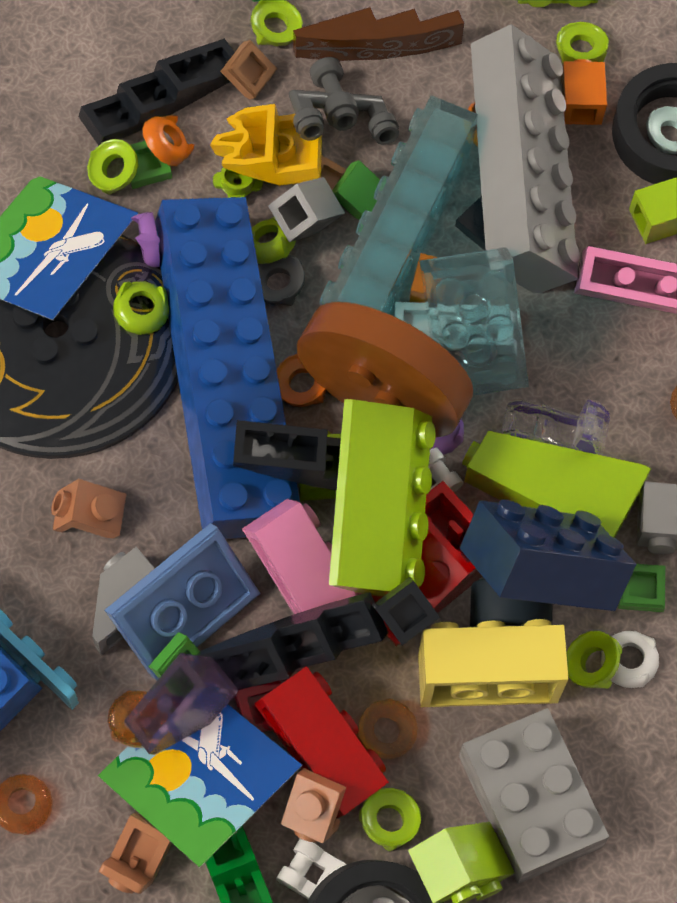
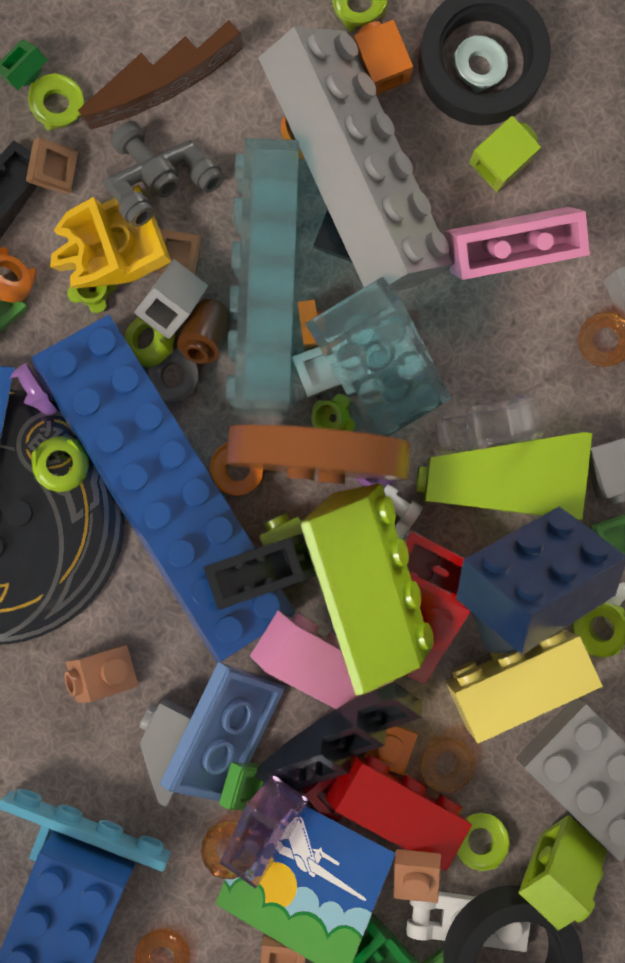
camera: 25 degrees left, 20 degrees up
(322, 249) = (205, 331): none -> reddish brown brick
(346, 687) = (396, 749): none -> orange plate
(357, 189) = (210, 252): bright green tile -> none
(406, 611) = (434, 686): black plate -> none

